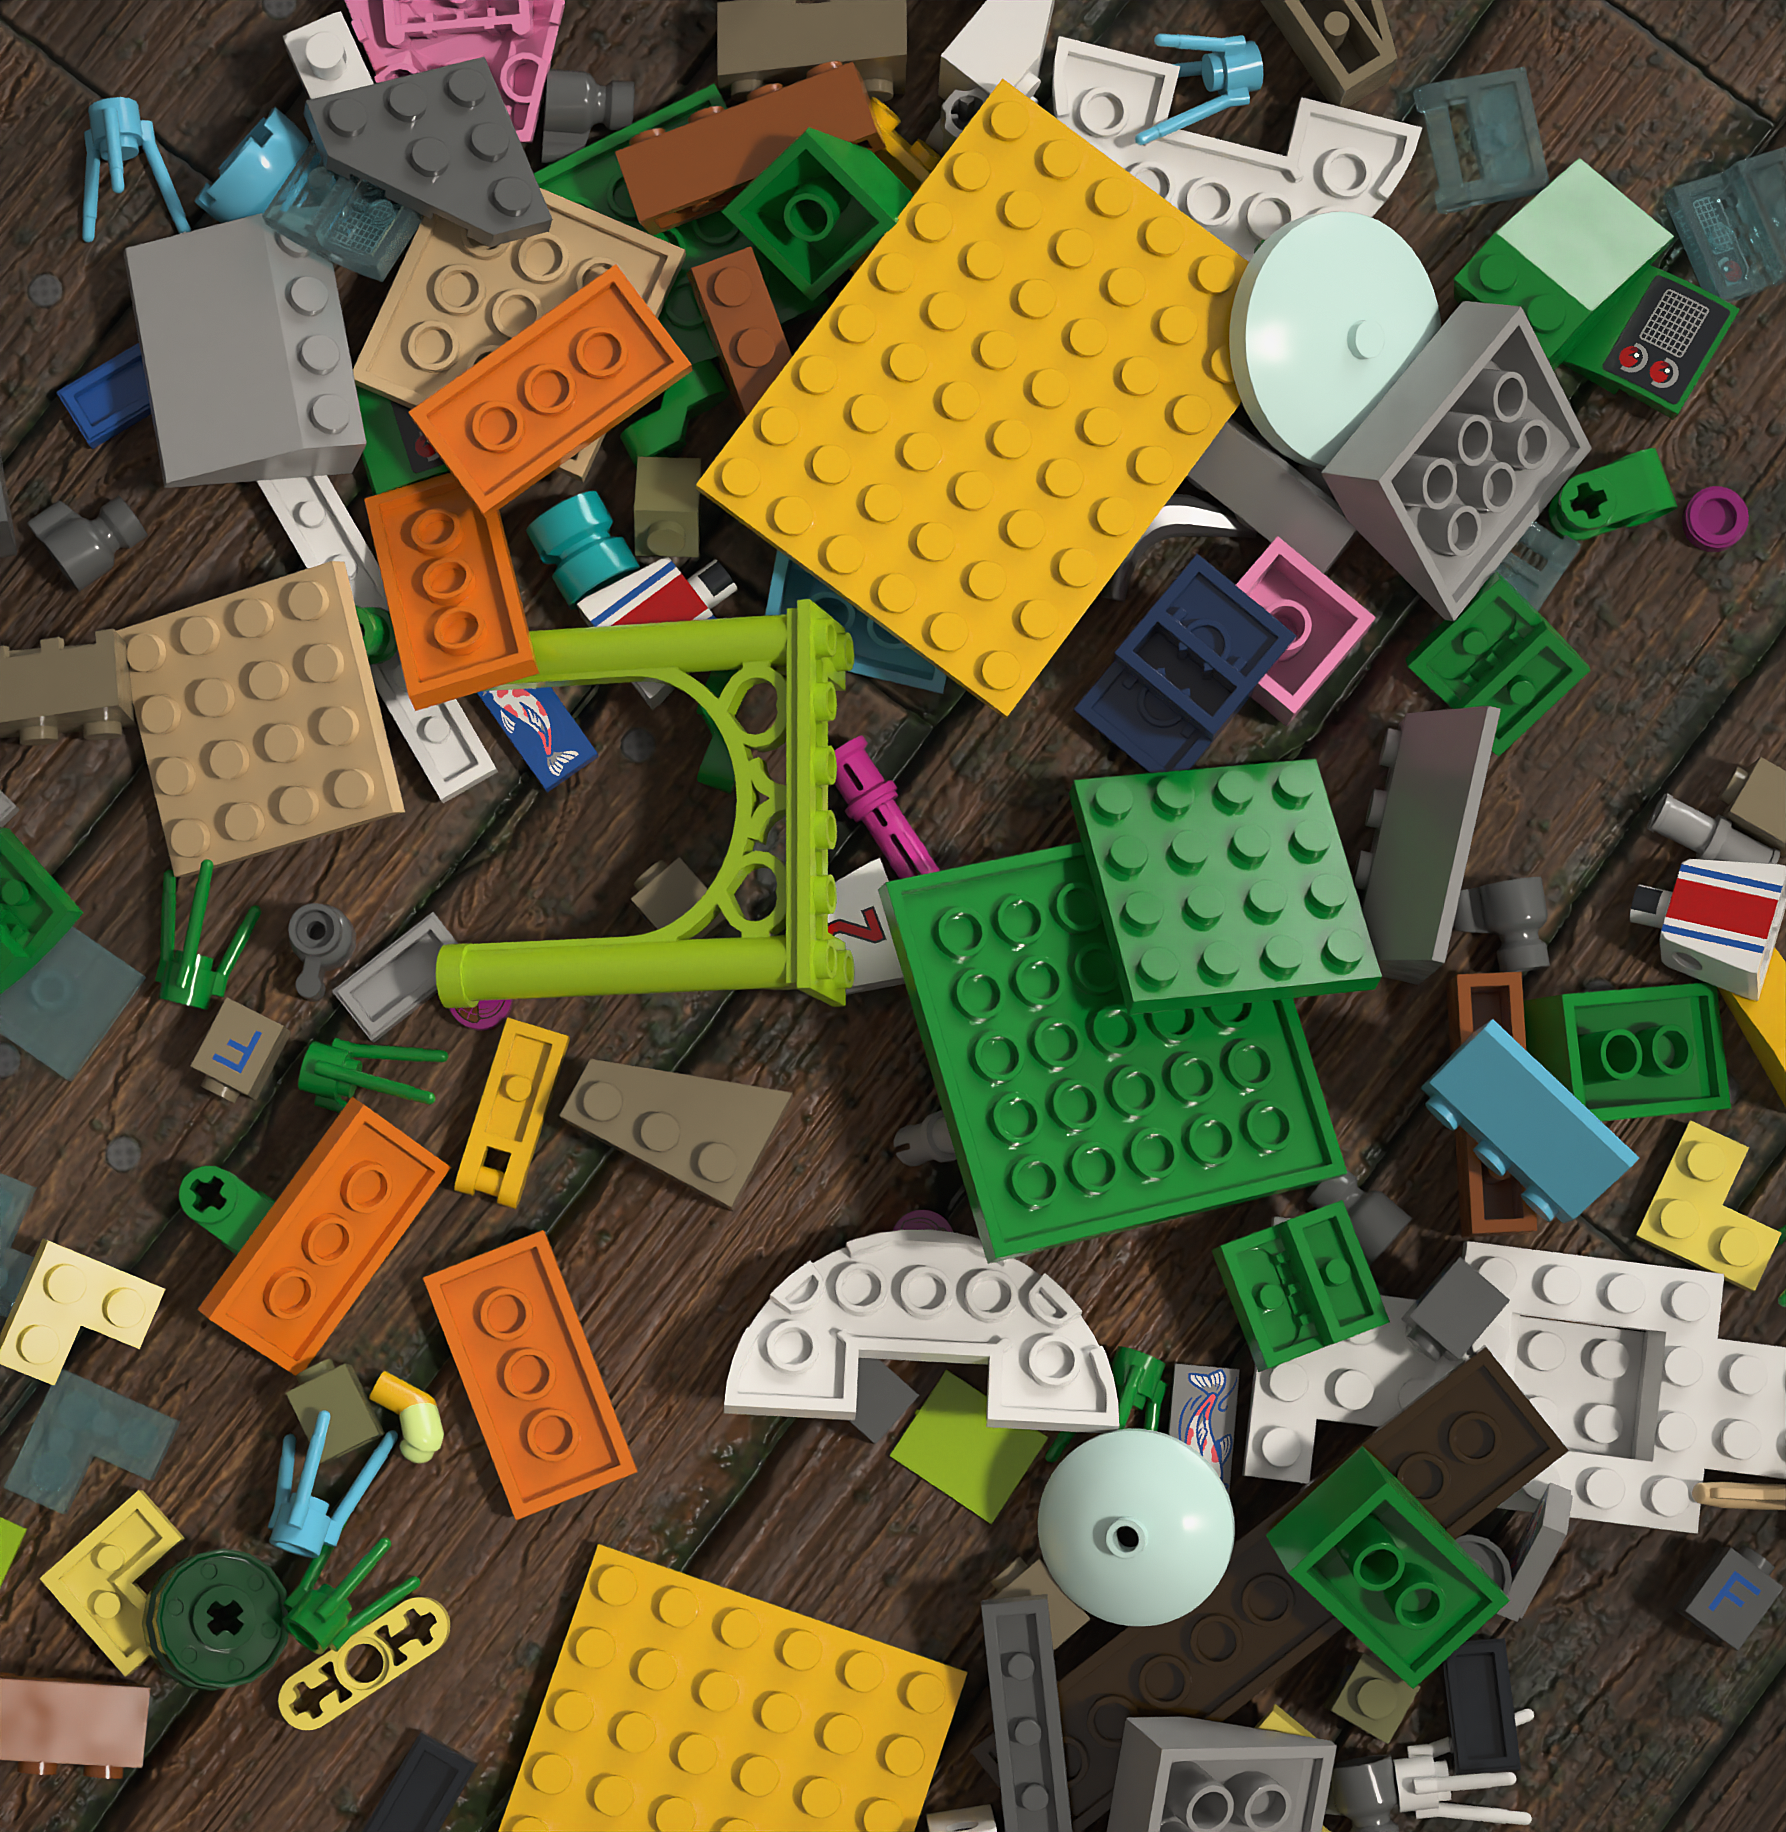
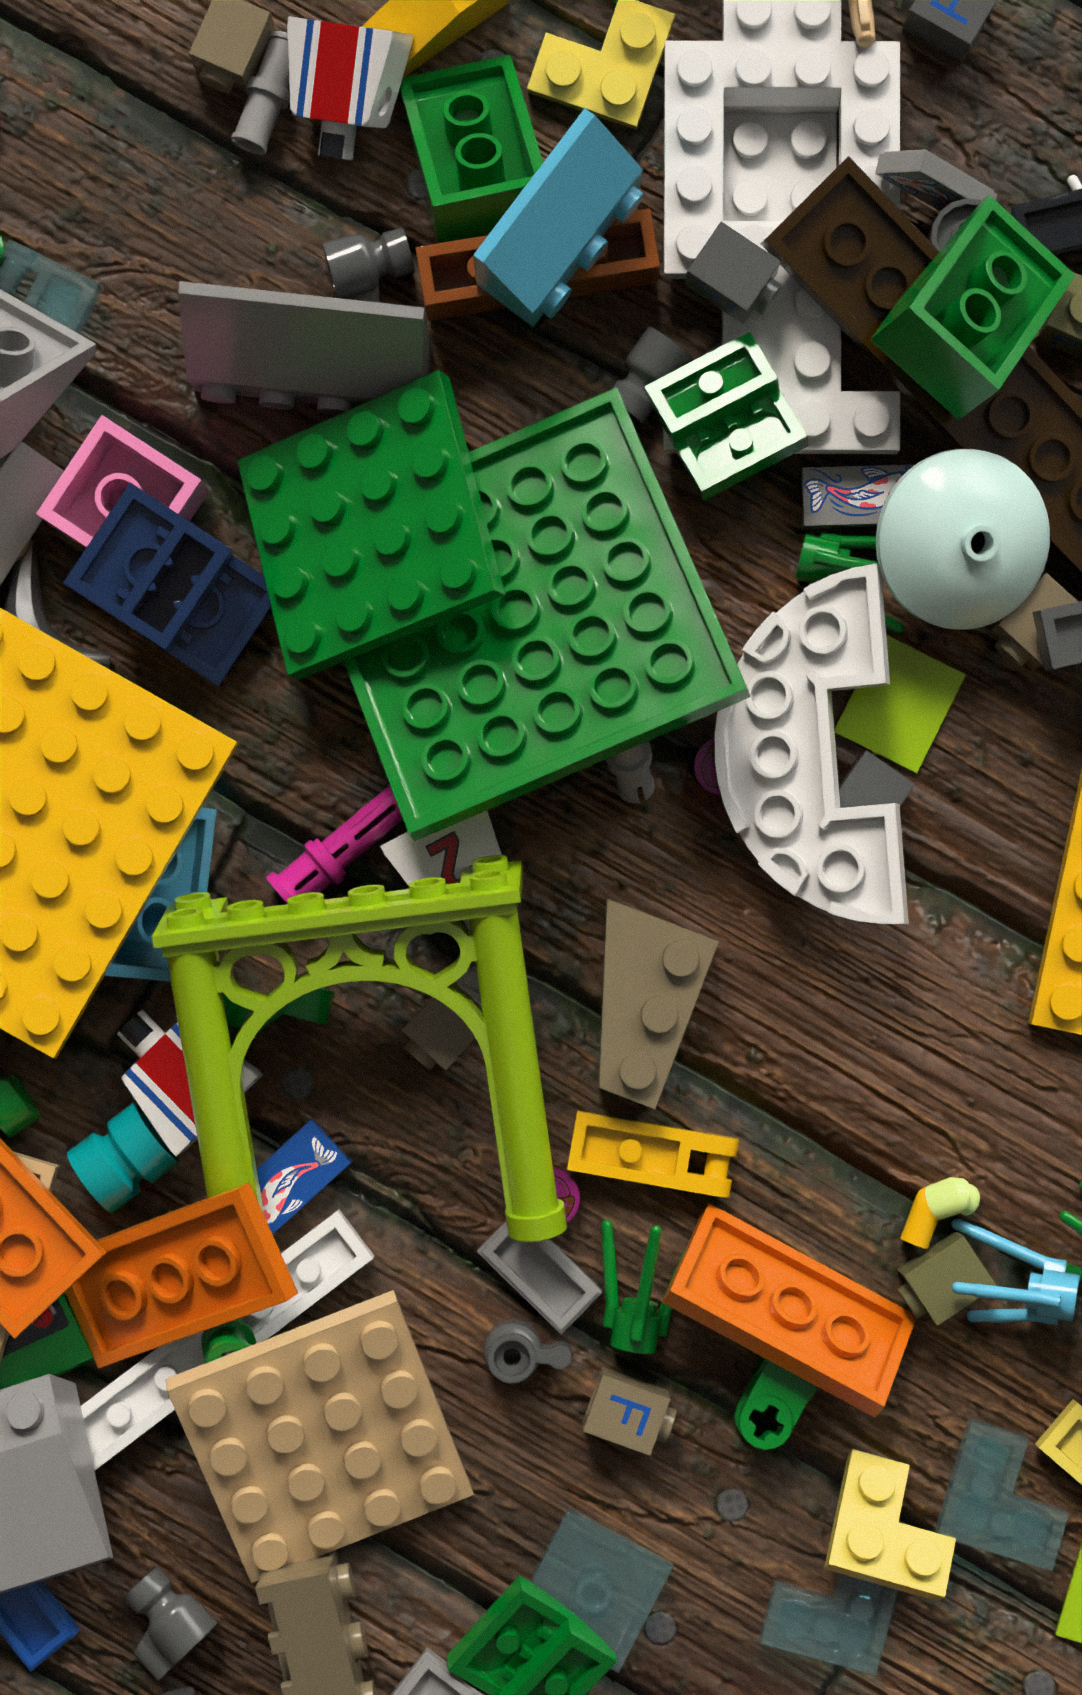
camera: 85 degrees left, 5 degrees up
(189, 976) = (562, 1471): green plant -> none
(530, 1375) = (888, 1105): orange plate -> none
(667, 507) = (73, 1083): olive brick -> none
(1500, 658) = (125, 302): green slope -> none

